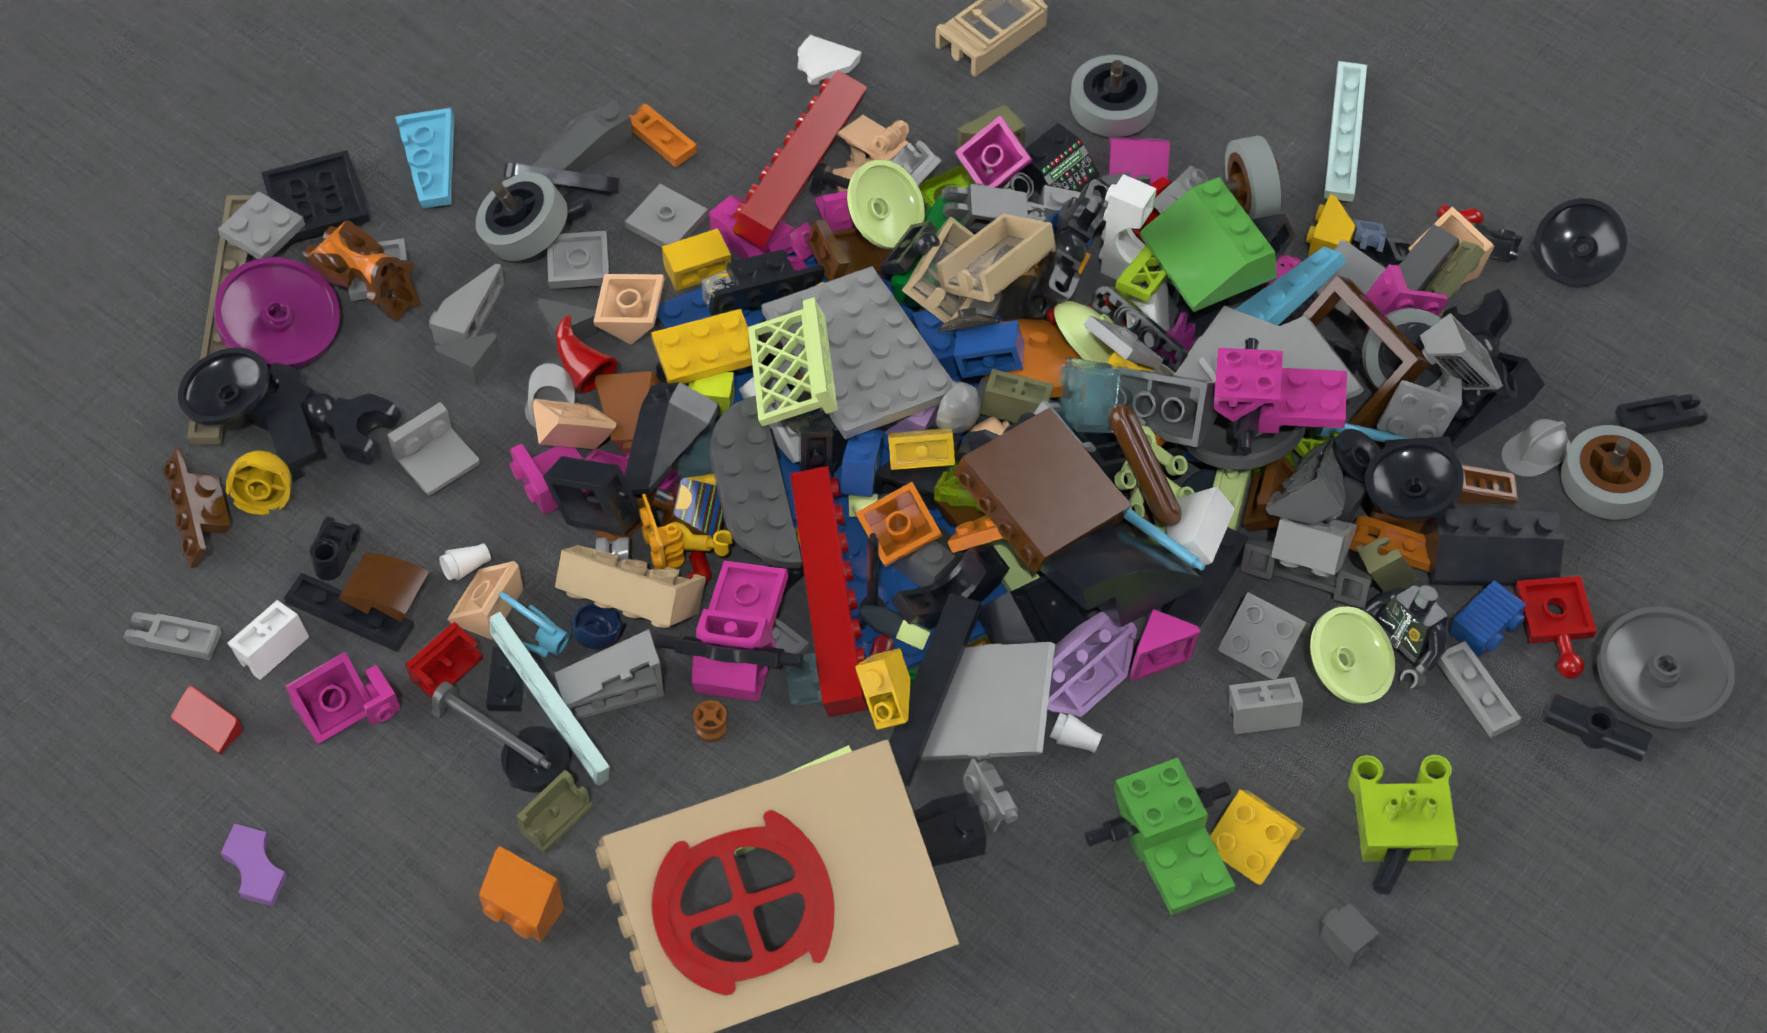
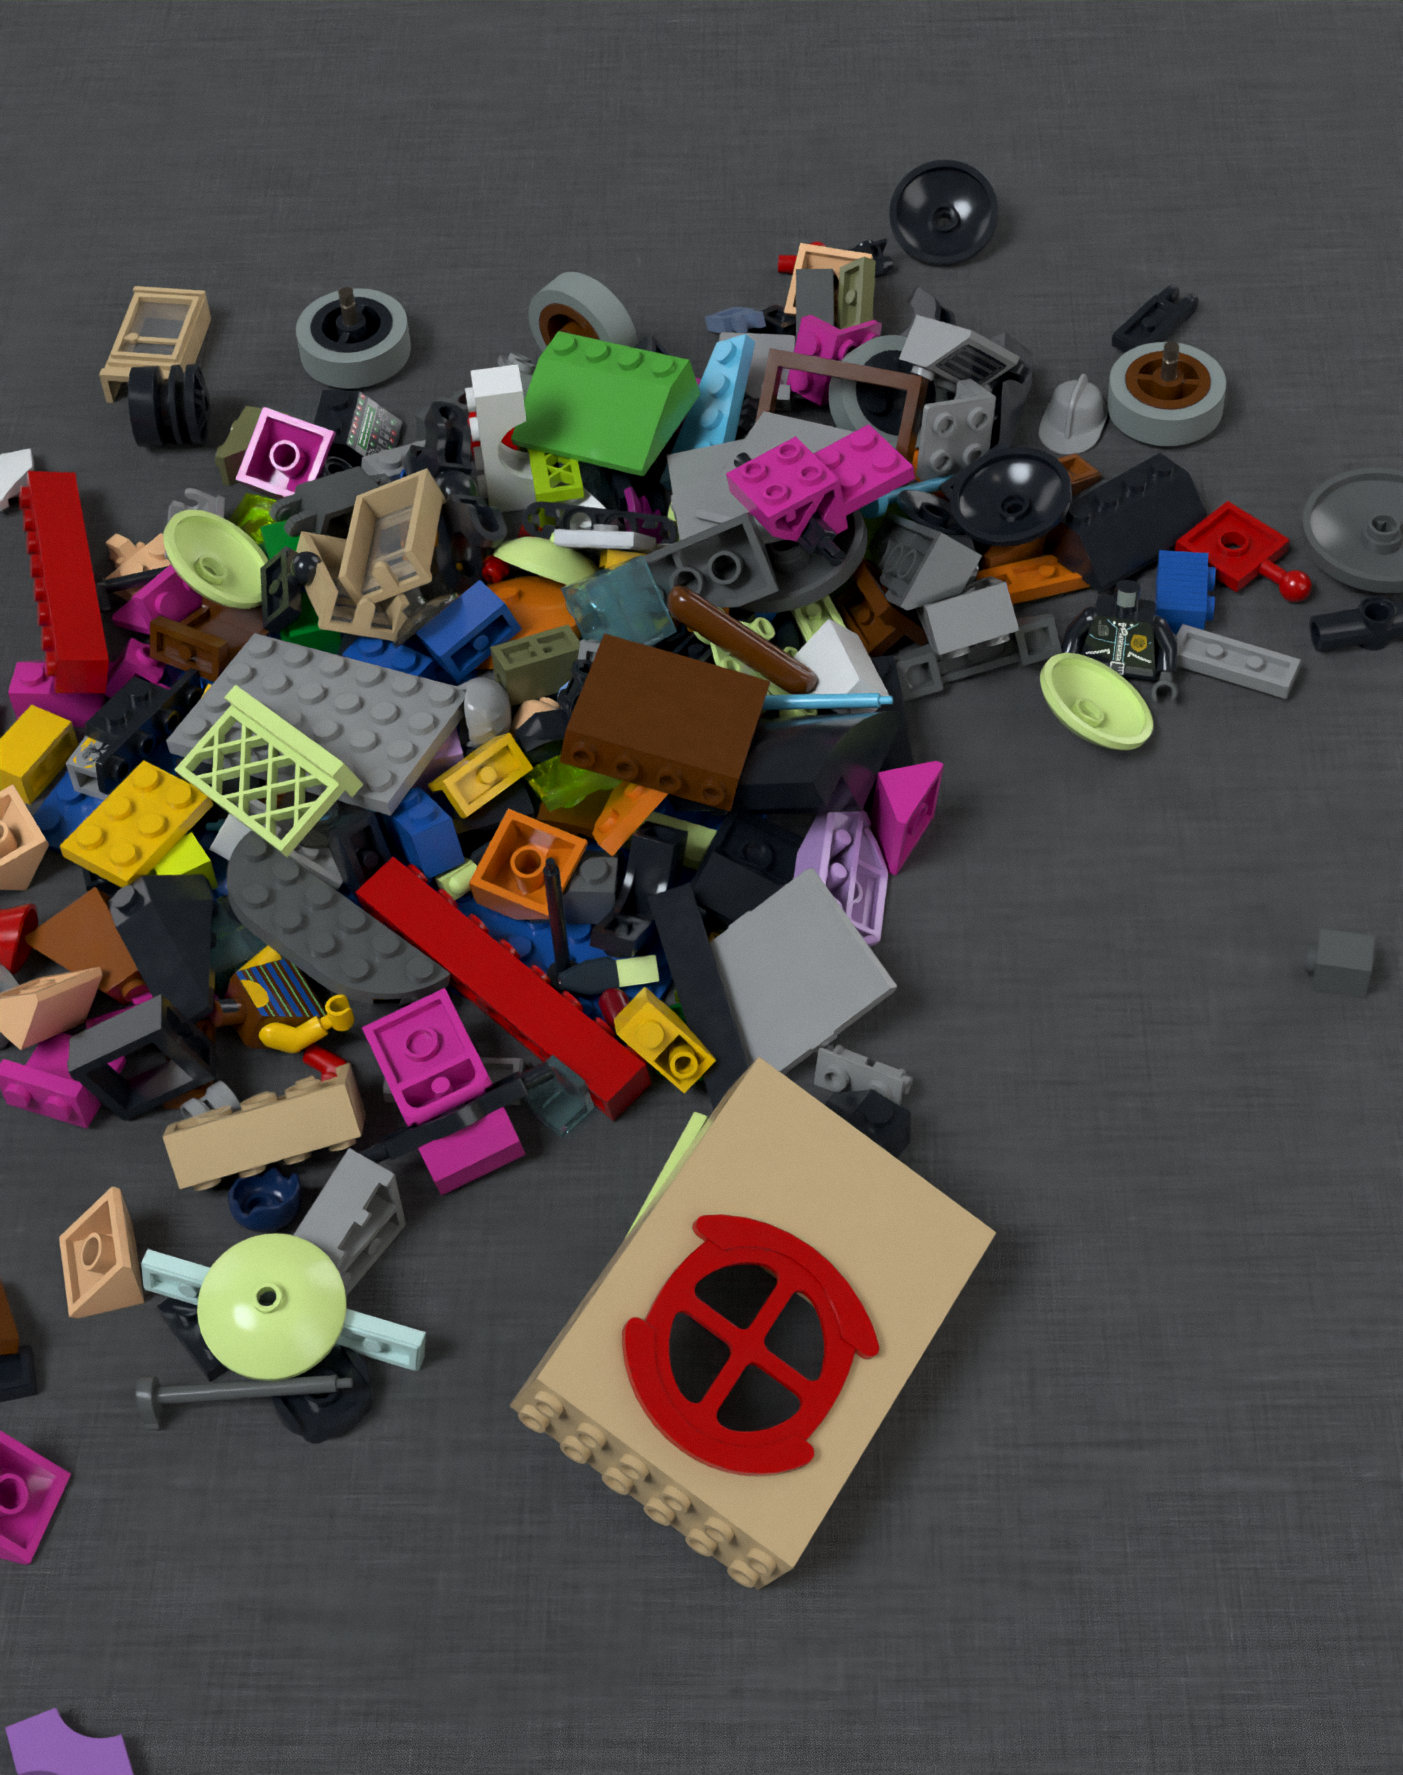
camera: 35 degrees left, 5 degrees down
(383, 699) = (67, 1448): dark pink bracket -> none
(444, 660) = (111, 1361): red hinge -> none
(462, 561) = (33, 1240): white cone -> none
(520, 895) = (448, 1543): orange slope -> none
(550, 636) = (211, 1243): medium azure plant -> none
(553, 812) = (398, 1432): olive hinge -> none
(554, 702) = (276, 1338): none -> yellowish green dish
(664, 541) = (264, 1060): light orange hinge -> none
(710, 712) = (479, 1204): dark orange wheel -> none
(875, 139) = (144, 520): light nougat hinge -> none
(958, 74) = (163, 405): none -> black wheel
(1074, 733) = (900, 956): white cone -> none
(1139, 157) = (429, 380): dark pink slope -> none
(1168, 833) = (1070, 983): bright green piece -> none
(1253, 836) = (1162, 936): yellow bracket -> none
(1262, 636) = (988, 743): light grey bracket -> none
(1265, 705) = (1055, 805): light grey hinge -> none
(1332, 226) = (691, 334): yellow slope -> none
(1345, 131) = (620, 245): light aqua plate -> none
(1387, 570) = (1059, 597): olive hinge -> none
(1403, 819) = (1284, 823): lime piece -> none

